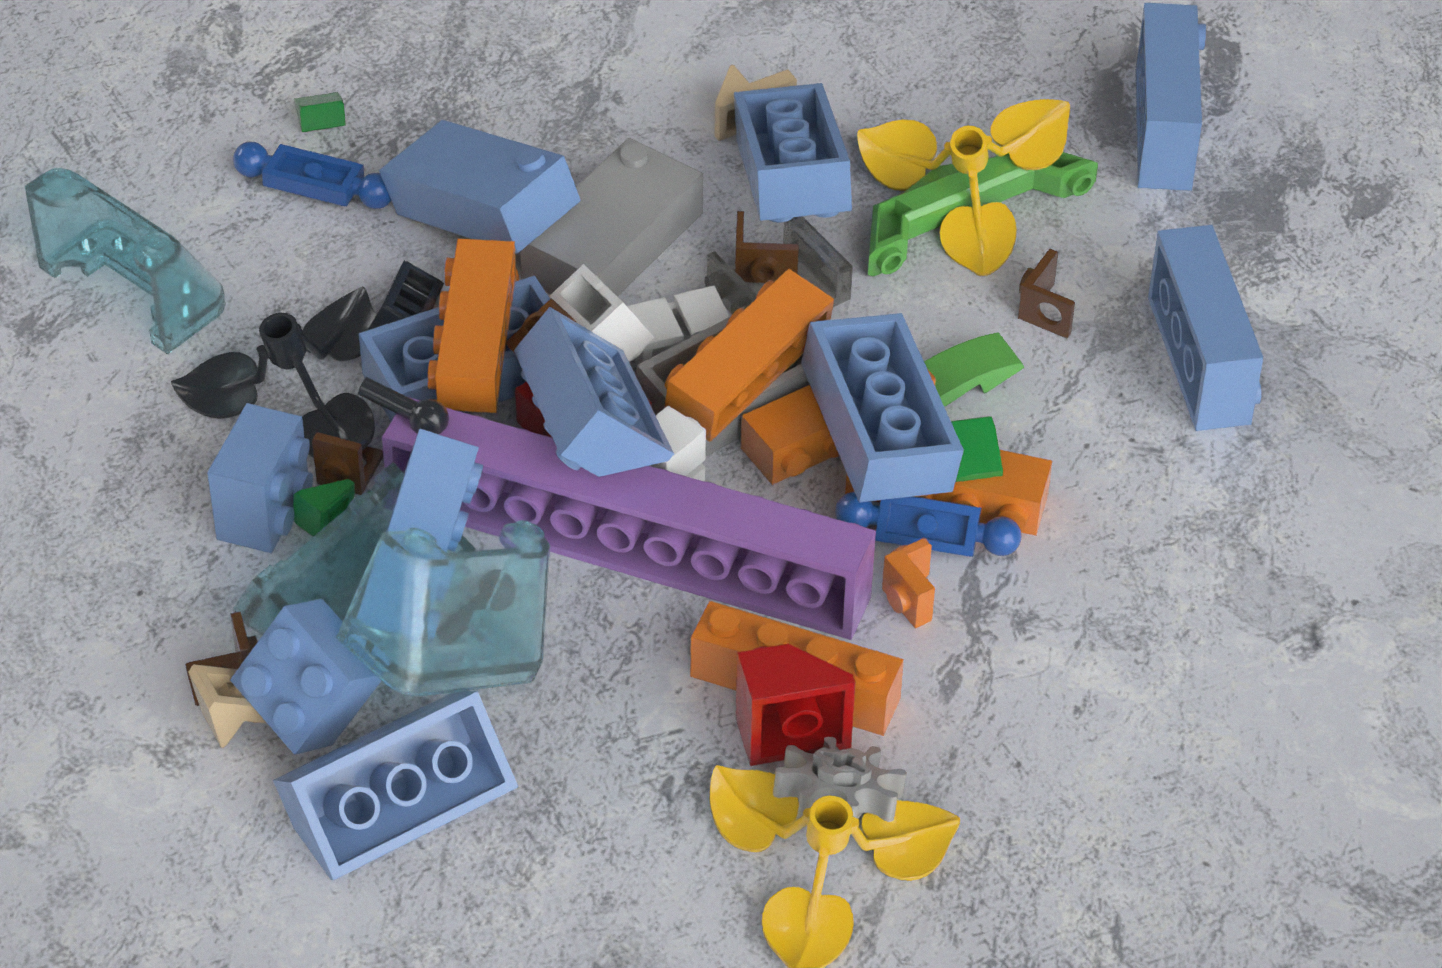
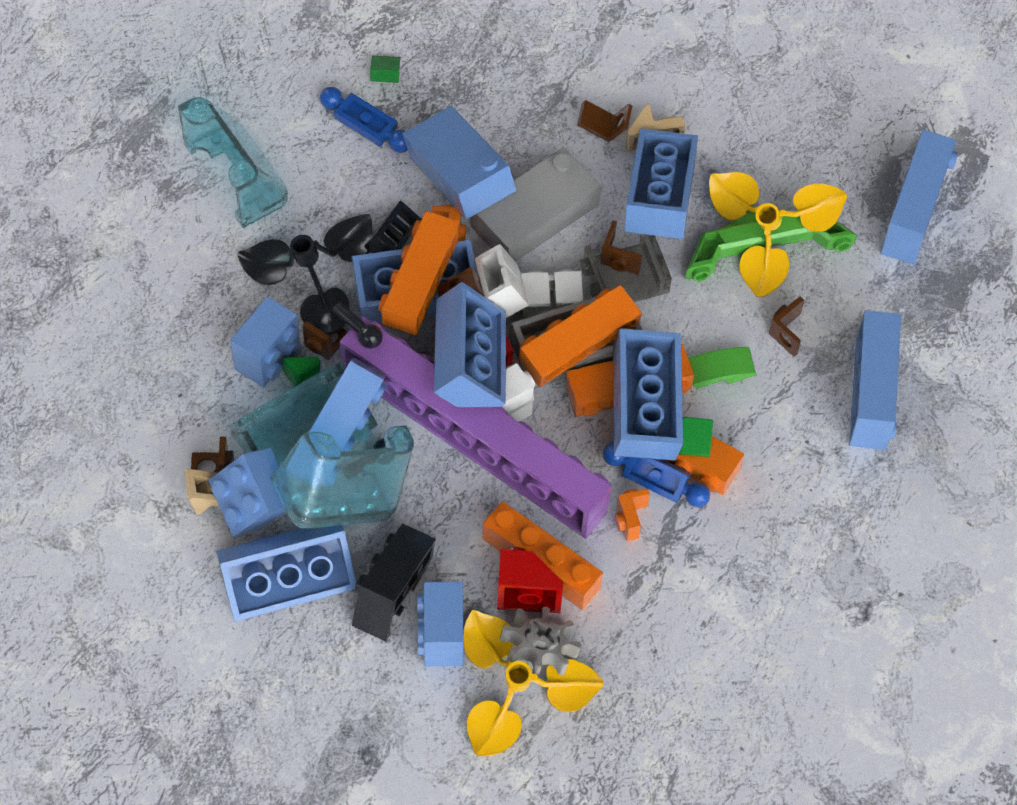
camera: 15 degrees right, 15 degrees up
(569, 756) = (391, 579): none -> black wedge
(671, 110) = (603, 122): none -> reddish brown bracket
(677, 791) = (441, 623): none -> medium blue brick

